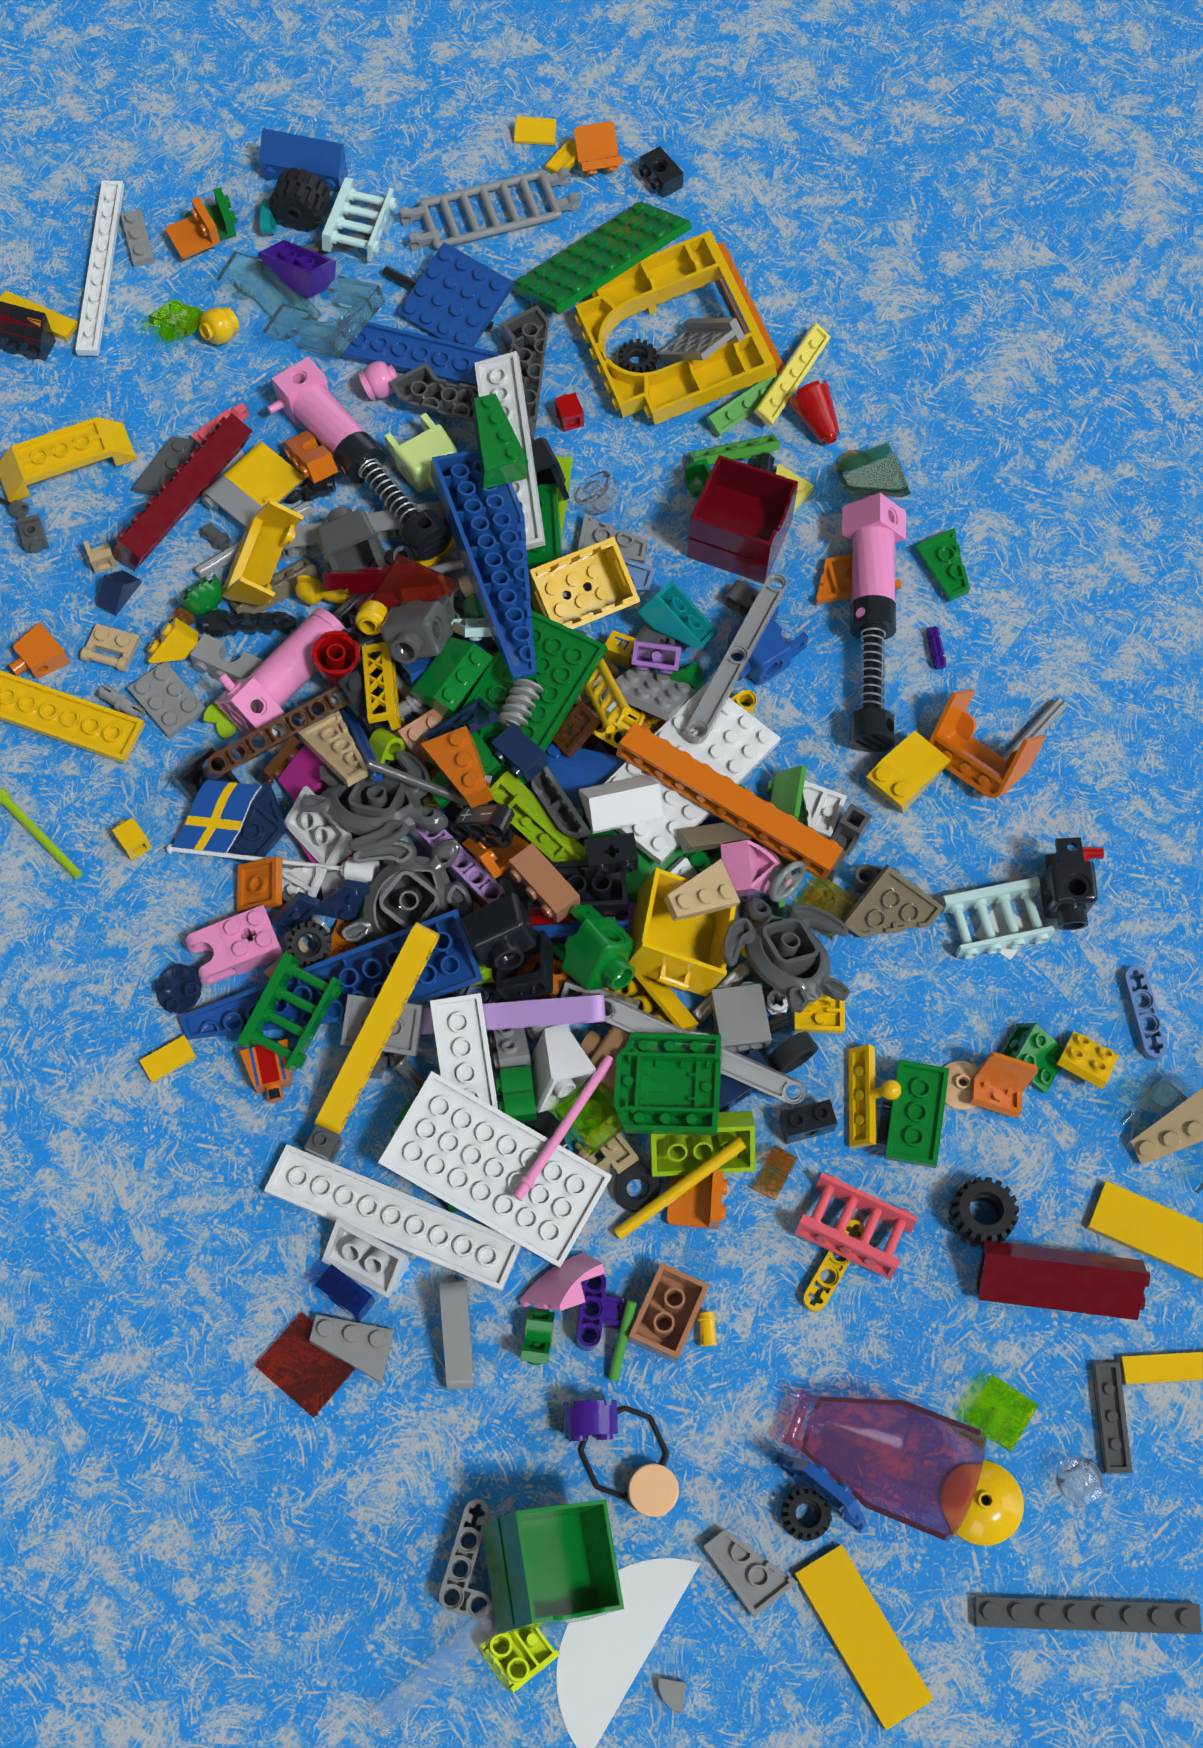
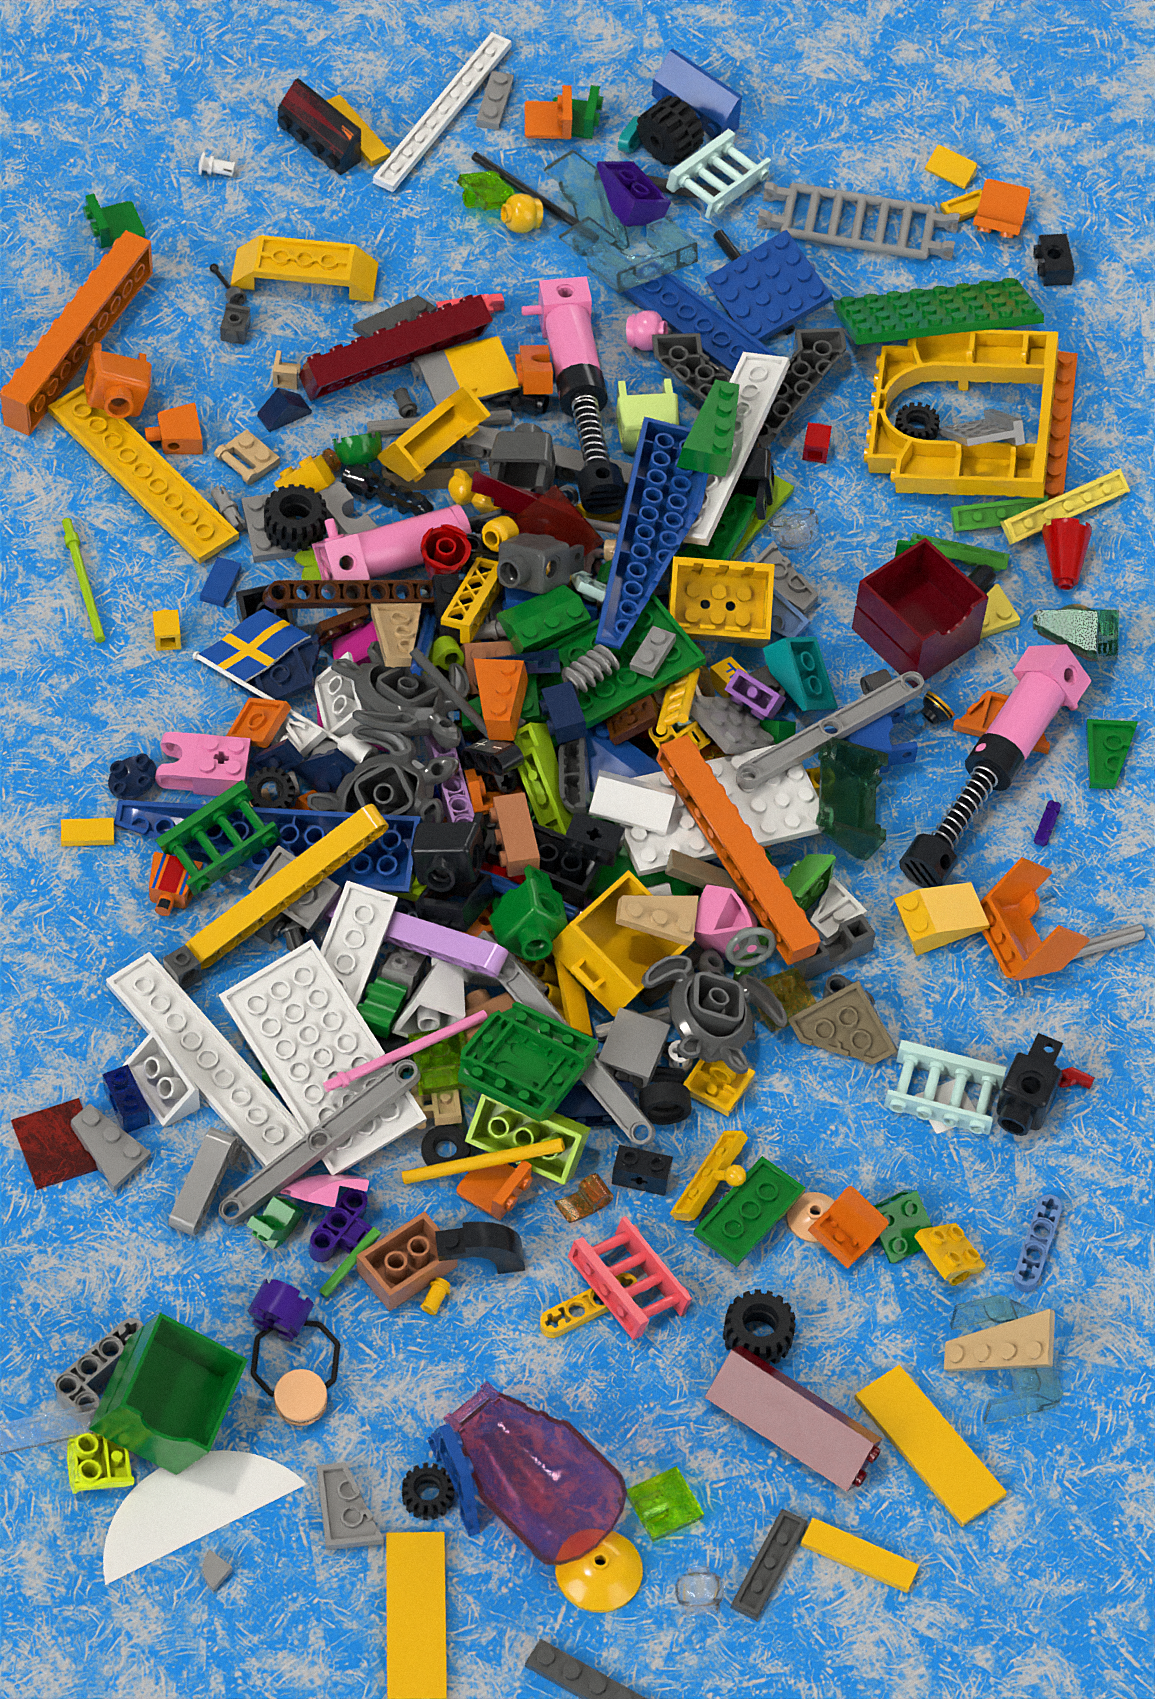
camera: 25 degrees right, 10 degrees down
(152, 771) = (220, 582): none -> blue tile
(182, 669) = (295, 502): none -> black tyre
(205, 303) = (524, 189): none -> black piece
(529, 1264) = (304, 1155): none -> light grey beam
(561, 662) = (652, 652): none -> light grey plate
(723, 1267) = (483, 1241): none -> black arch
(779, 707) = (849, 796): none -> clear green windscreen
(797, 594) = (935, 708): none -> black piece

